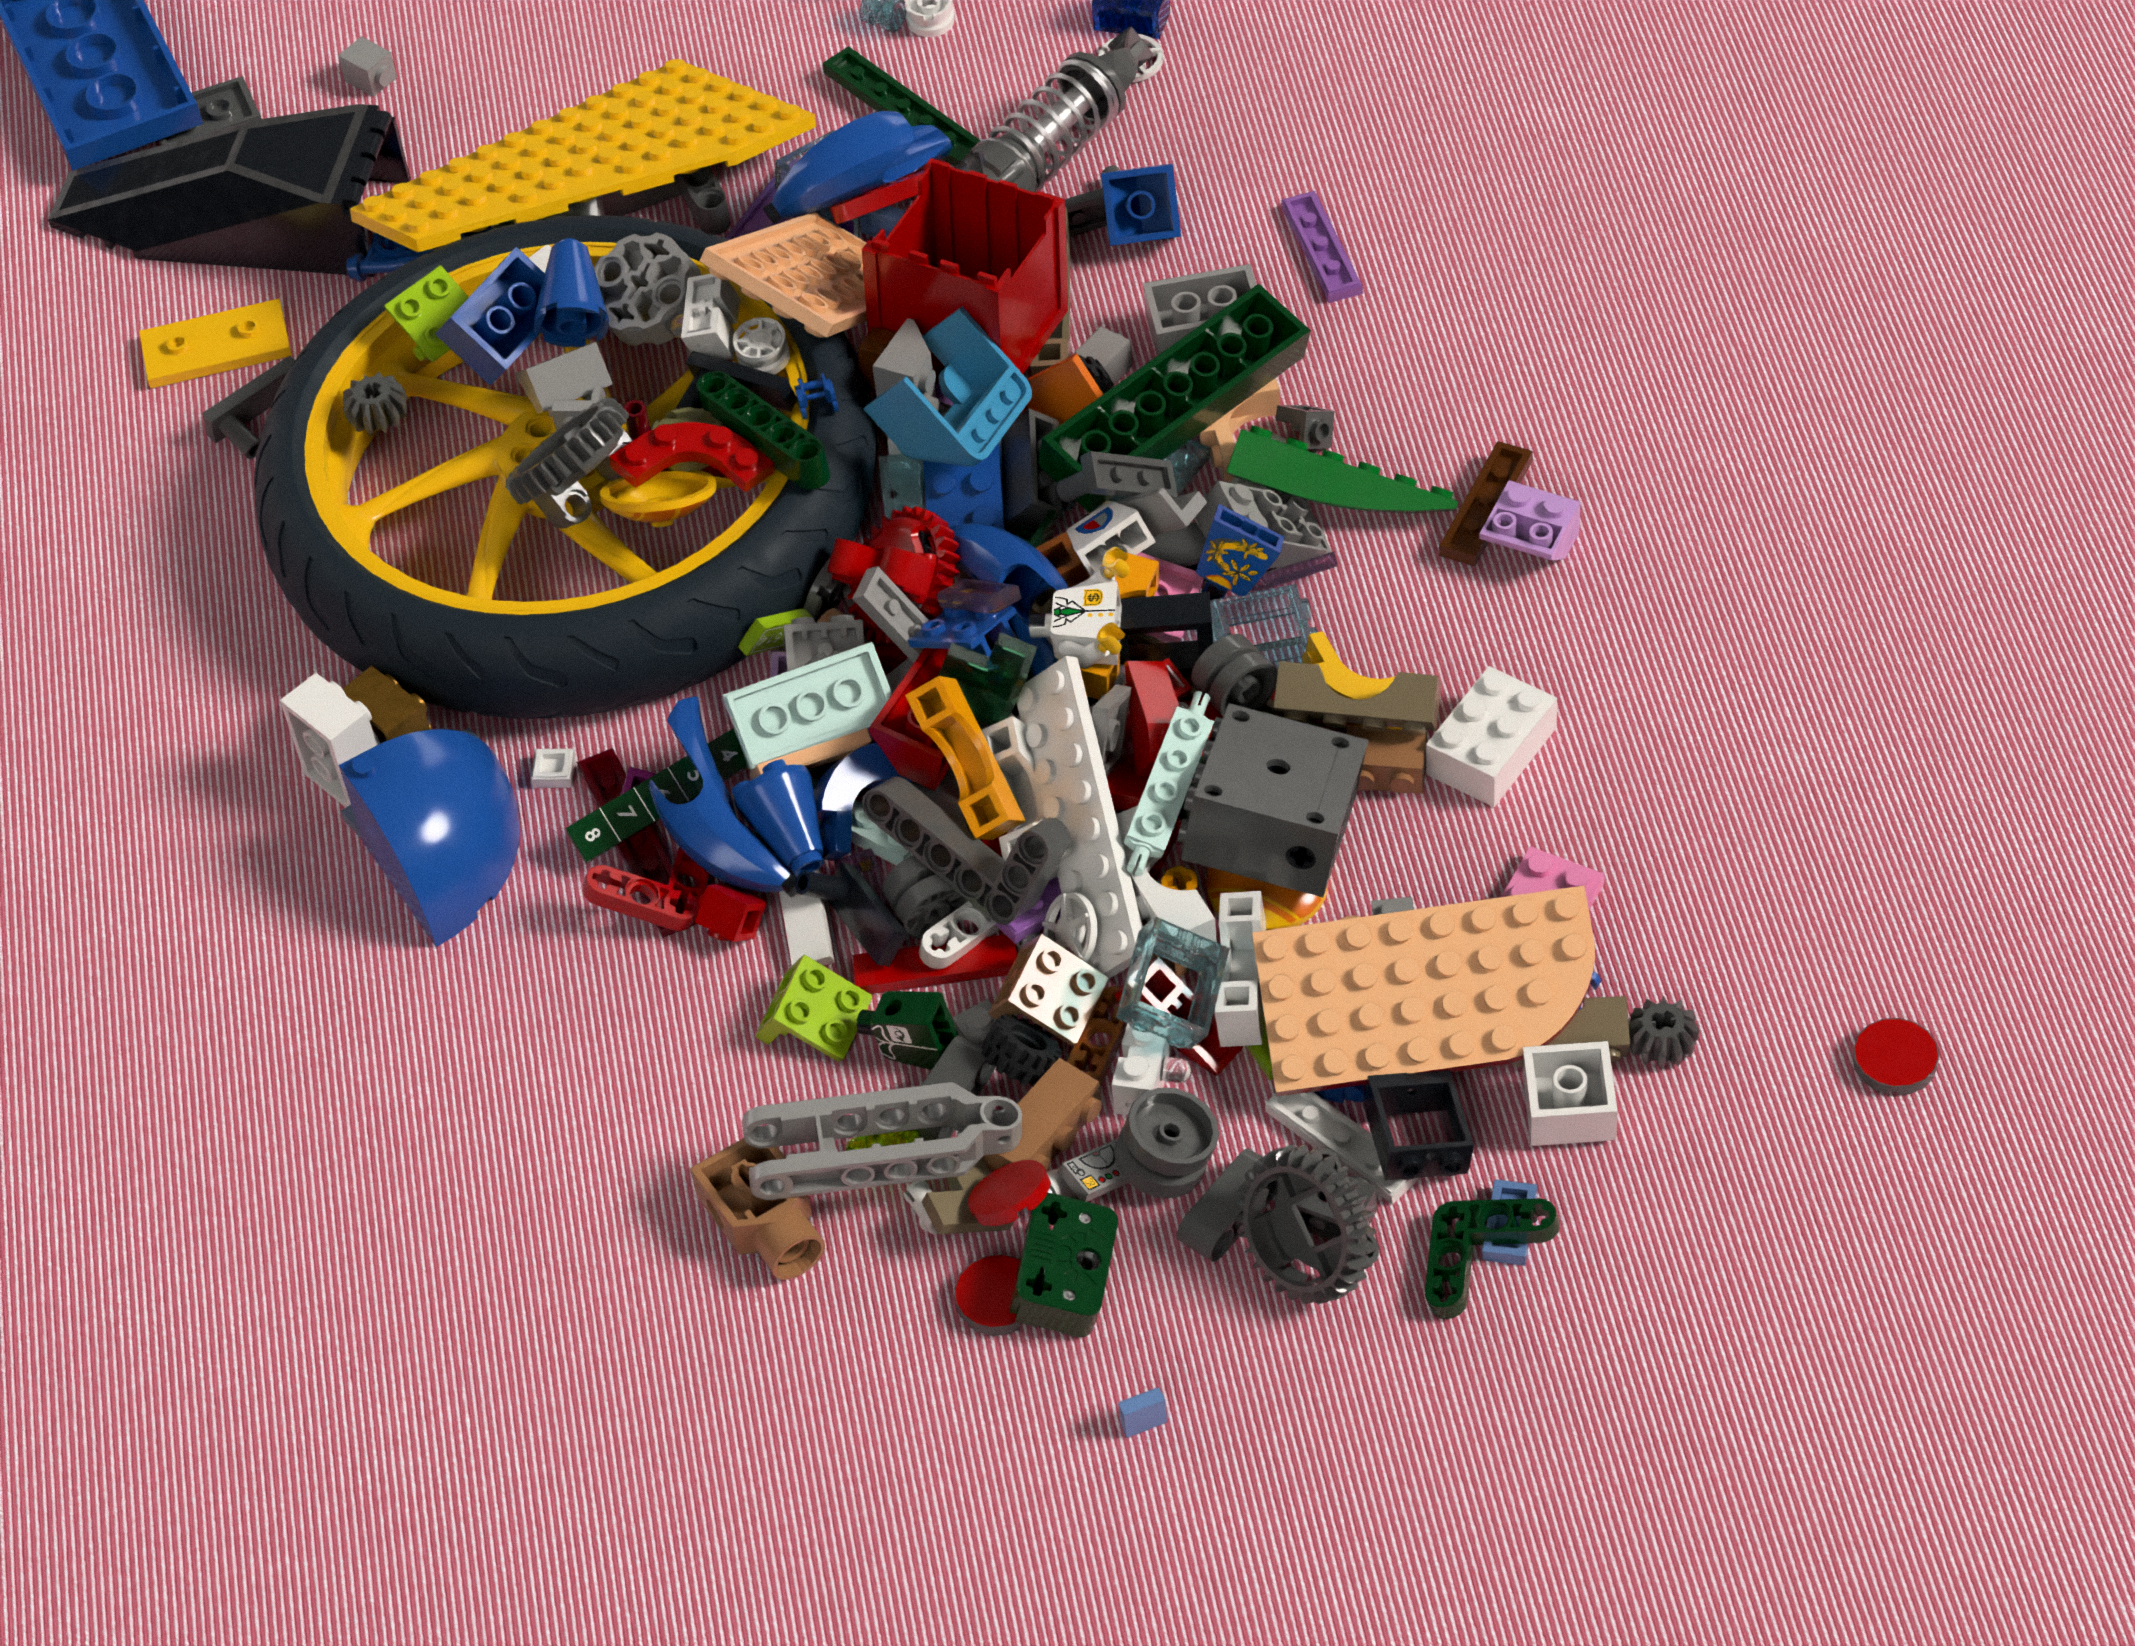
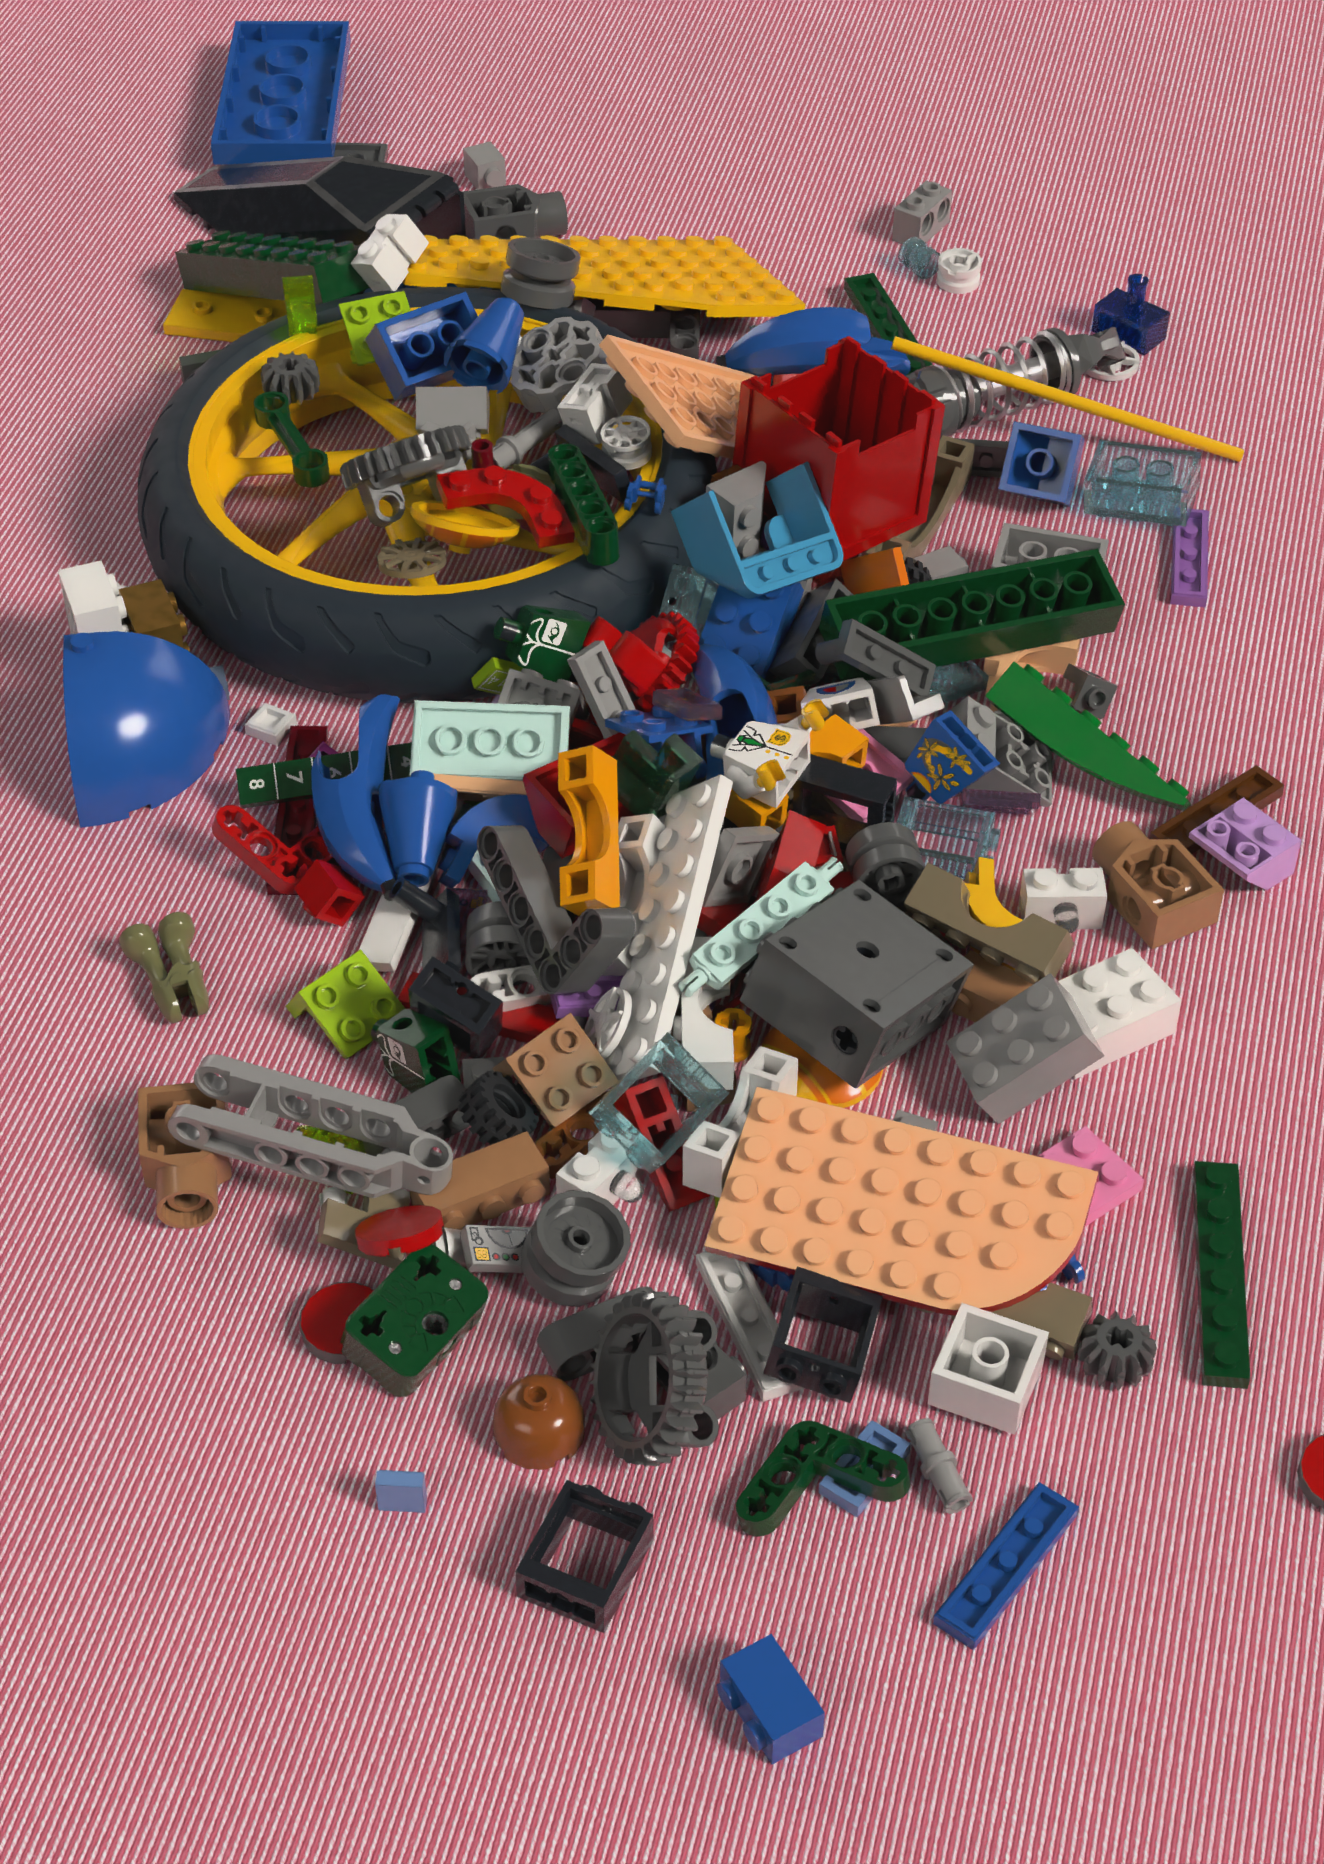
camera: 20 degrees right, 5 degrees down
(252, 278) = (257, 263): none -> dark green brick
(338, 320) = (300, 304): none -> clear neon green leg
(390, 225) = (389, 252): none -> white piece
(418, 468) = (309, 464): none -> dark green piece
(443, 118) = (514, 211): none -> dark grey brick
(560, 191) = (540, 273): none -> dark grey wheel
(611, 1016) = (185, 976): none -> olive piece
(624, 551) = (411, 559): none -> dark tan wheel
(655, 376) = (511, 449): none -> light grey pin
(799, 582) = (543, 639): none -> dark green torso
(918, 970) = (471, 1017): none -> black window
(1133, 125) = (1067, 399): none -> yellow piece
(1219, 1304) = (538, 1421): none -> dark orange cylinder
(1243, 187) = (1142, 483): none -> clear light blue brick
(1337, 1431) = (570, 1595): none -> black window
(1398, 644) = (1064, 899): none -> white piece
(1449, 799) = (1024, 1049): none -> light grey brick
(1472, 595) = (1156, 884): none -> medium nougat brick
(1545, 1439) = (770, 1699): none -> blue brick
(1571, 1192) = (939, 1465): none -> light grey pin
(1667, 1250) = (1005, 1566): none -> blue tile
(1709, 929) = (1220, 1276): none -> dark green plate

